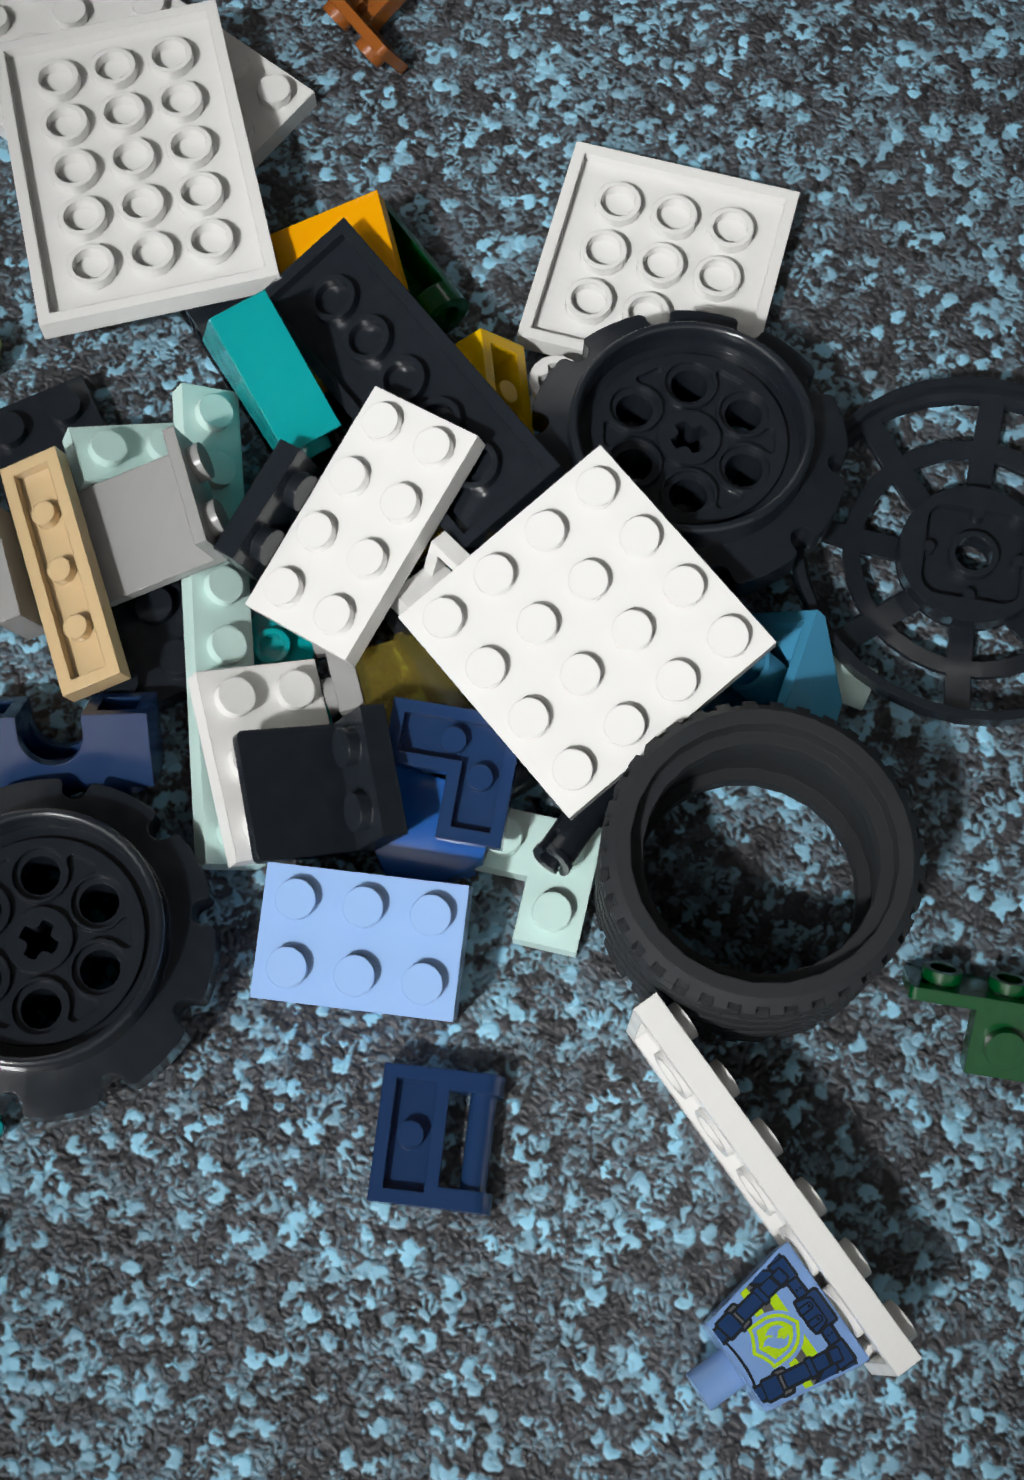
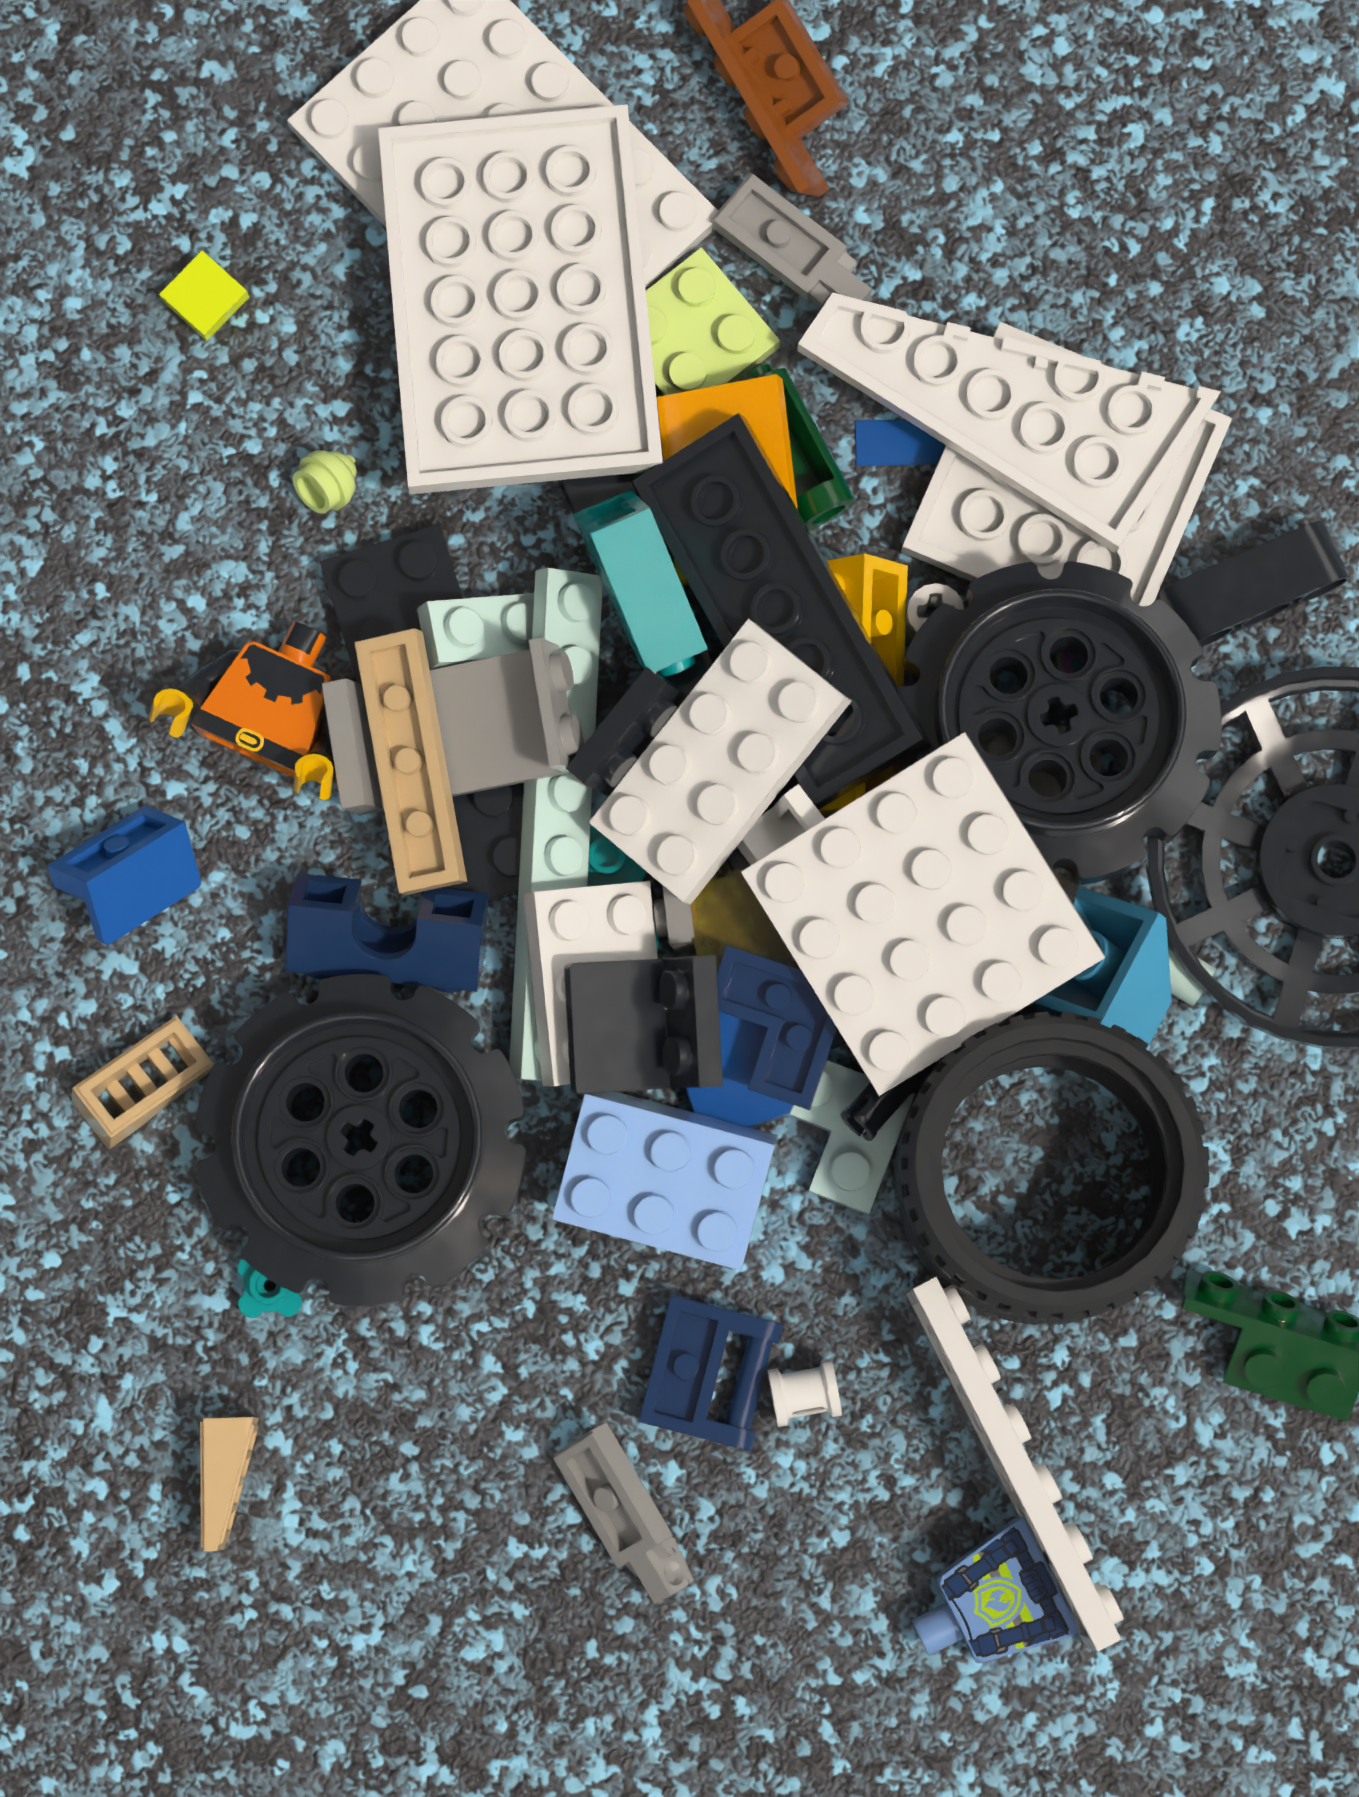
camera: 10 degrees right, 10 degrees up
(306, 177) = (703, 328): none -> yellowish green plate
(363, 1301) = (623, 1512): none -> light grey hinge
(381, 109) = (788, 243): none -> light grey hinge
(501, 259) = (895, 444): none -> blue sticker
(537, 1144) = (804, 1392): none -> white bush
(614, 204) = (1037, 417): none -> white wing
(857, 323) = (1257, 583): none -> black beam

